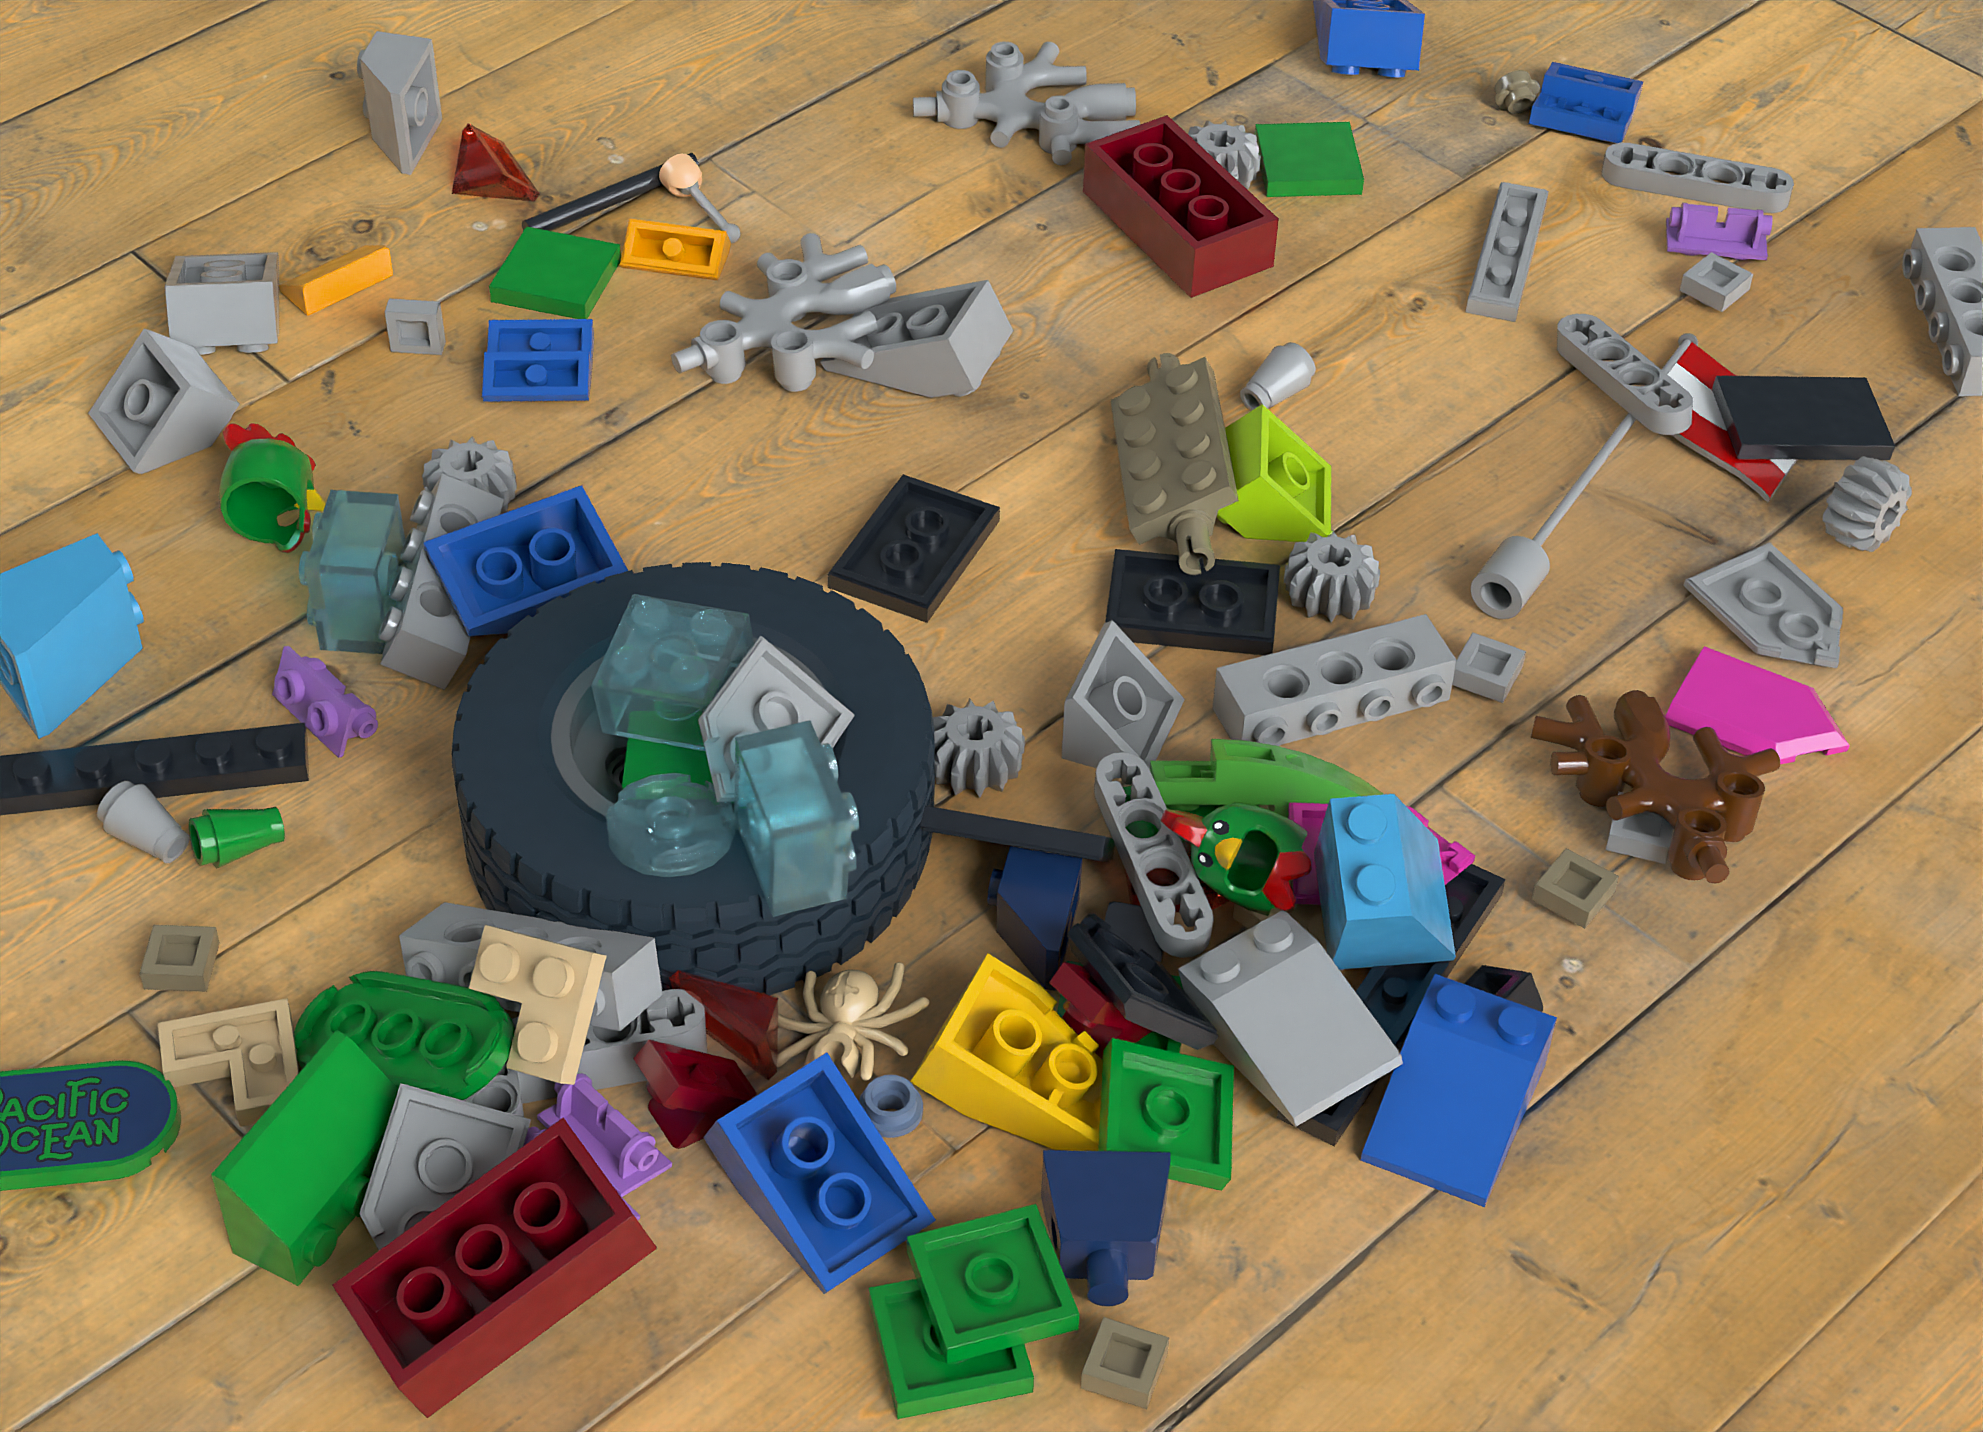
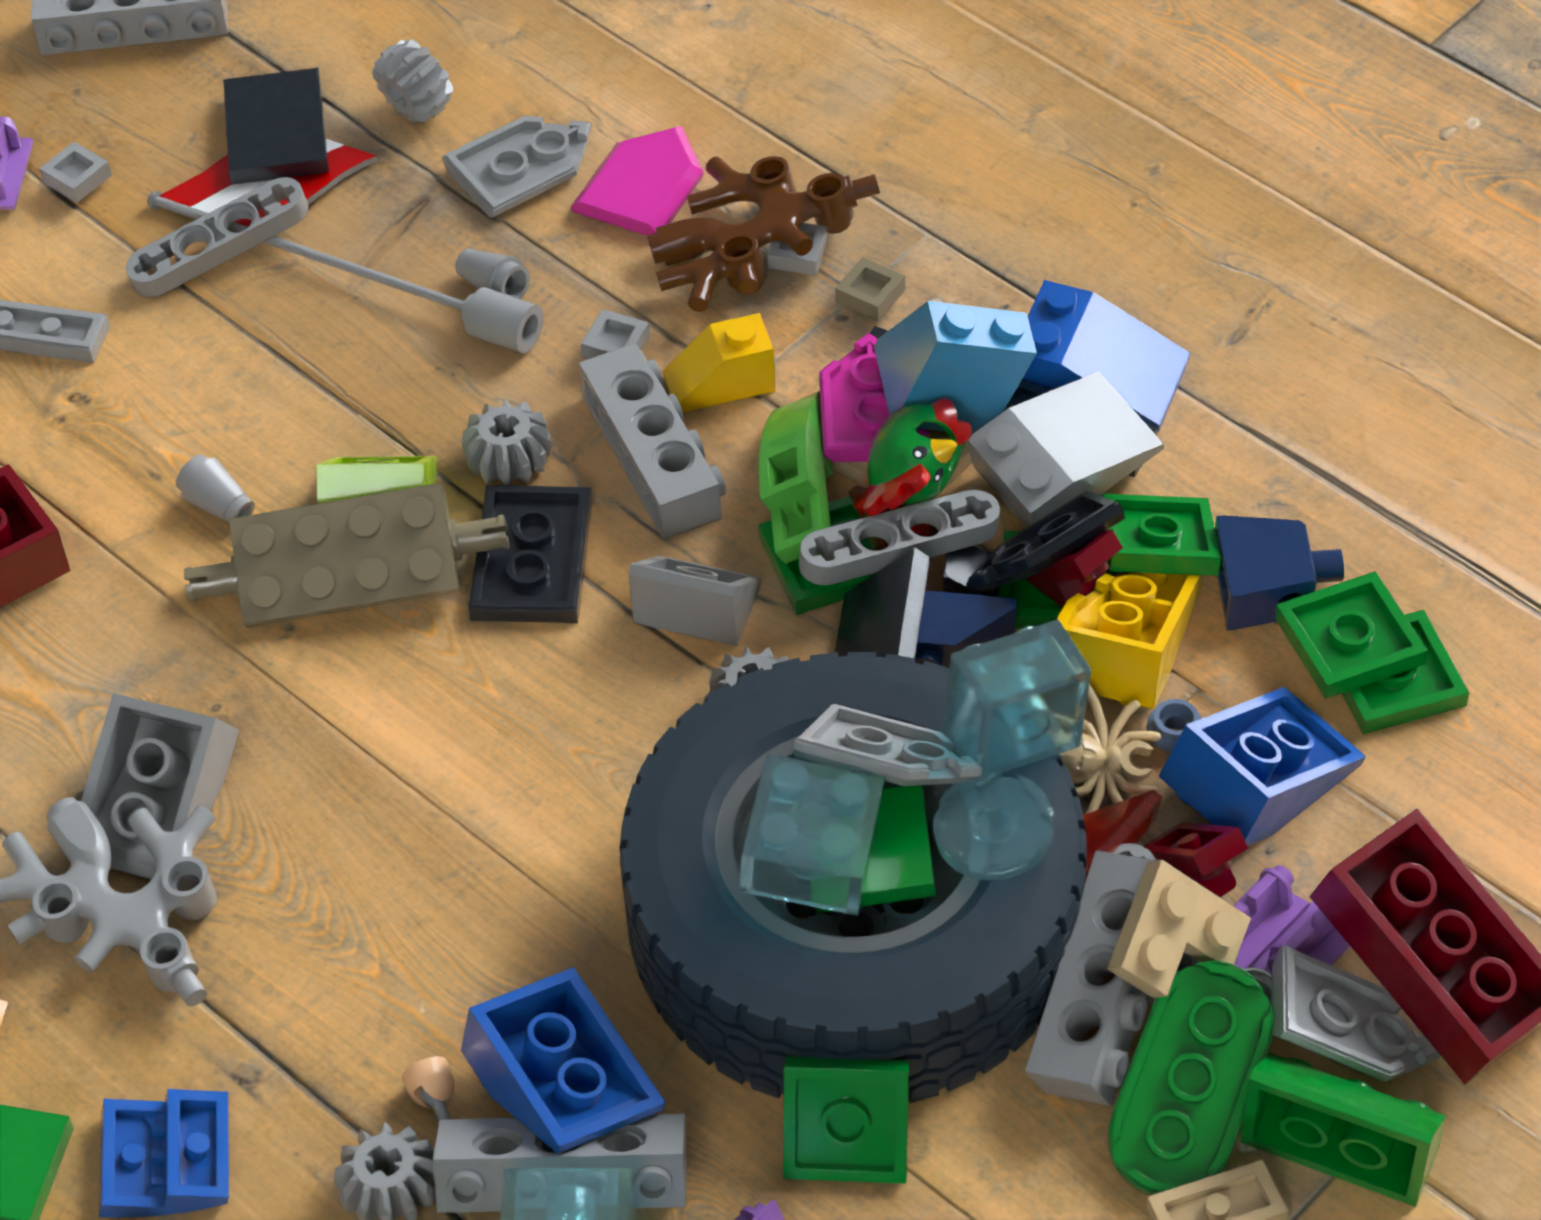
camera: 90 degrees left, 5 degrees up
(421, 769) = (845, 1120): none -> green tile
(914, 548) = (462, 775): black tile -> none
(1124, 1363) = (1397, 554): dark tan plate -> none
(1447, 757) = (723, 364): none -> yellow slope
(1580, 576) = (493, 271): none -> light grey cone

